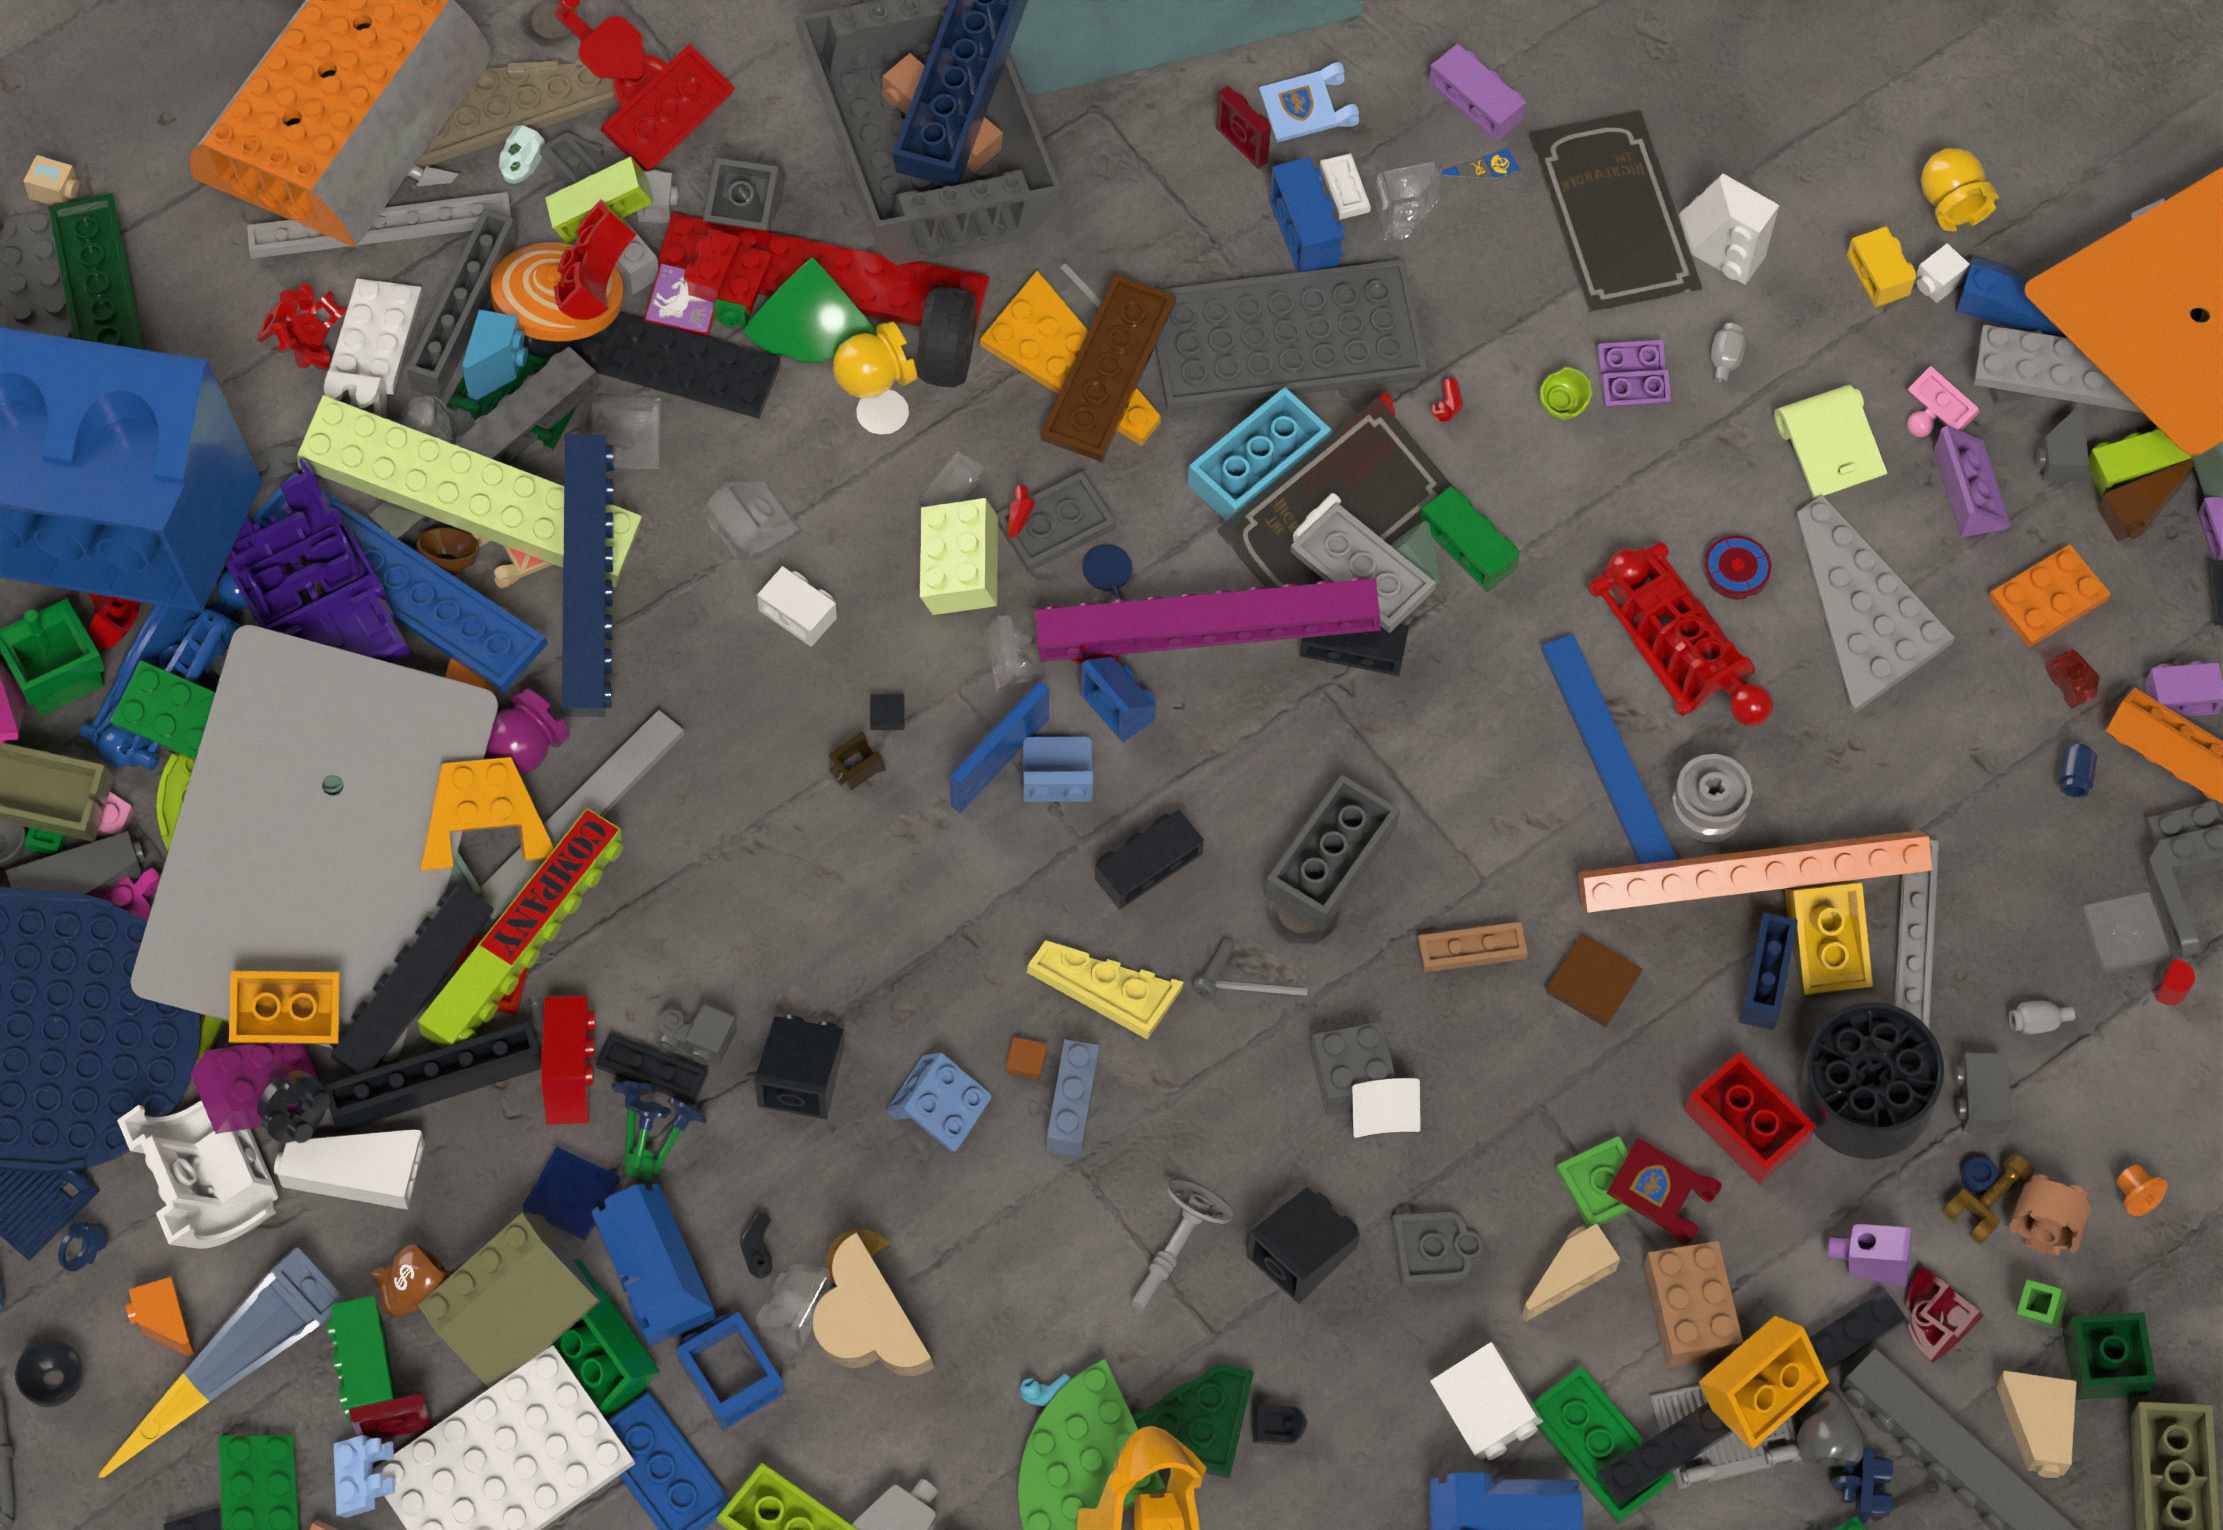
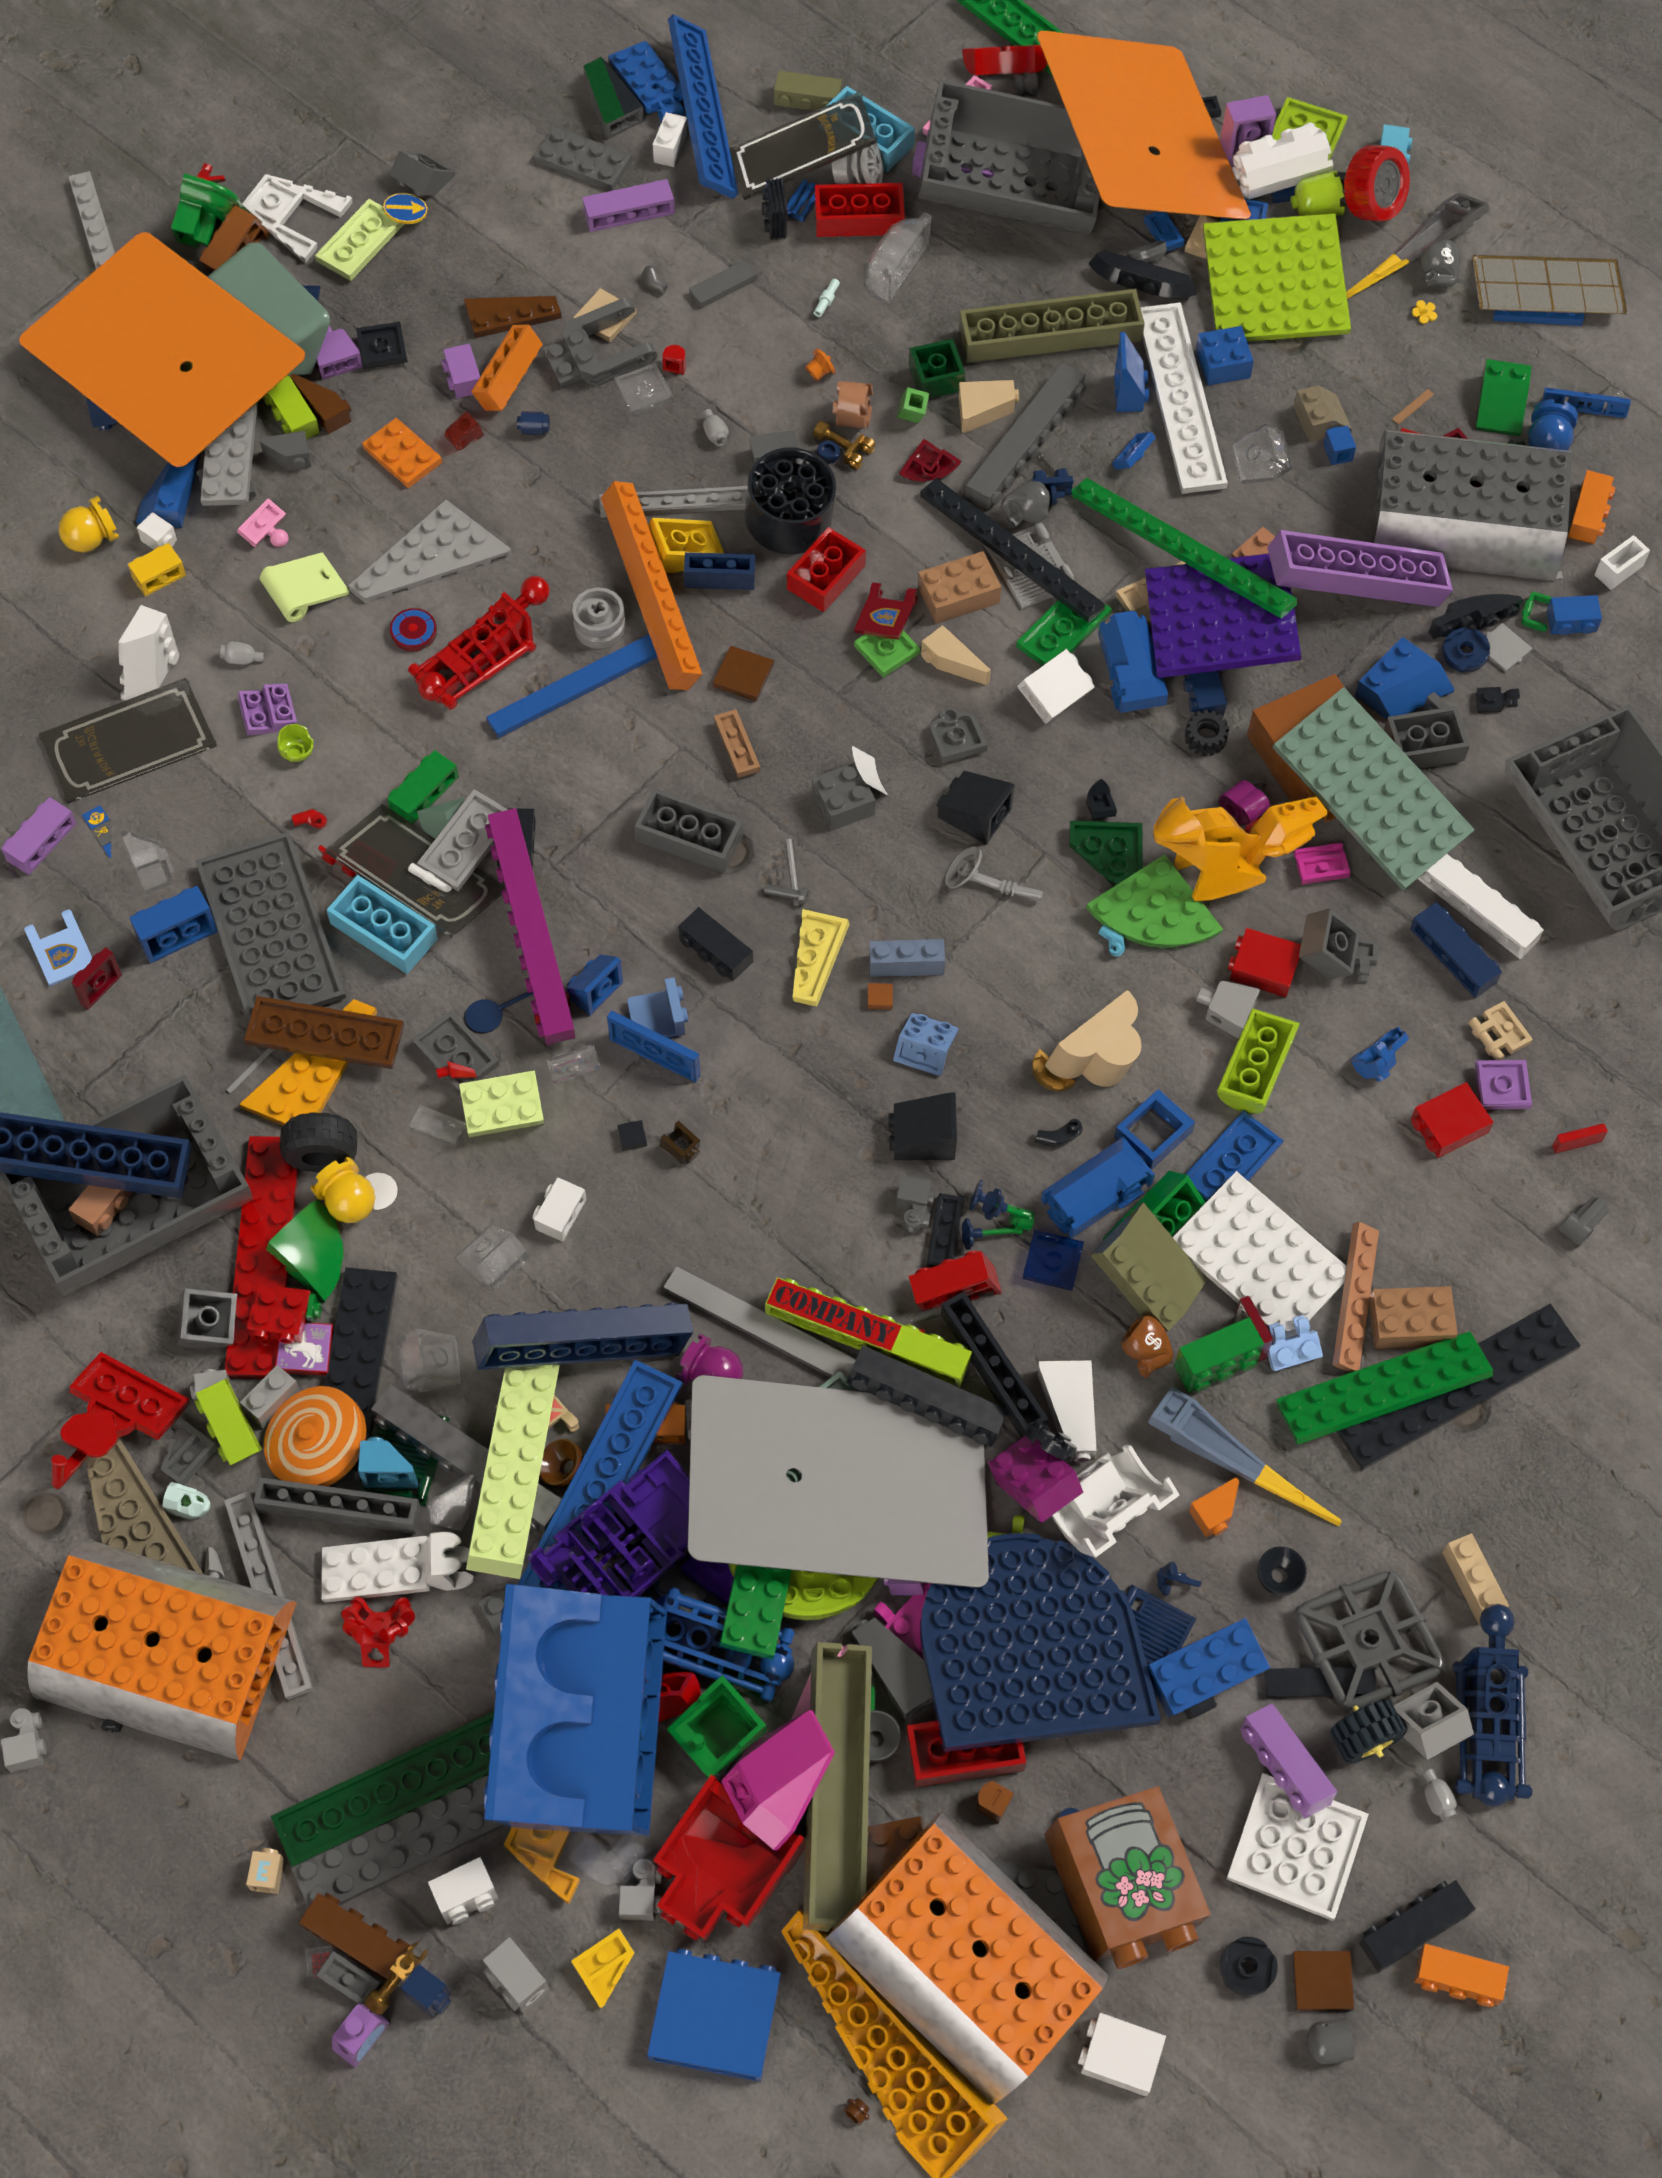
camera: 100 degrees left, 0 degrees up
(284, 1007) = (975, 1470): light orange slope -> none
(479, 798) = (778, 1378): light orange wing -> none
(590, 263) = (298, 1408): red brick -> none
(791, 1311) = (1101, 1094): clear slope -> none
(1345, 186) = (121, 912): white plate -> none
(1764, 1380) = (1006, 535): light orange slope -> none
(1875, 1252) = (901, 491): medium lavender torso -> none
(1970, 483) = (325, 504): medium lavender slope -> none

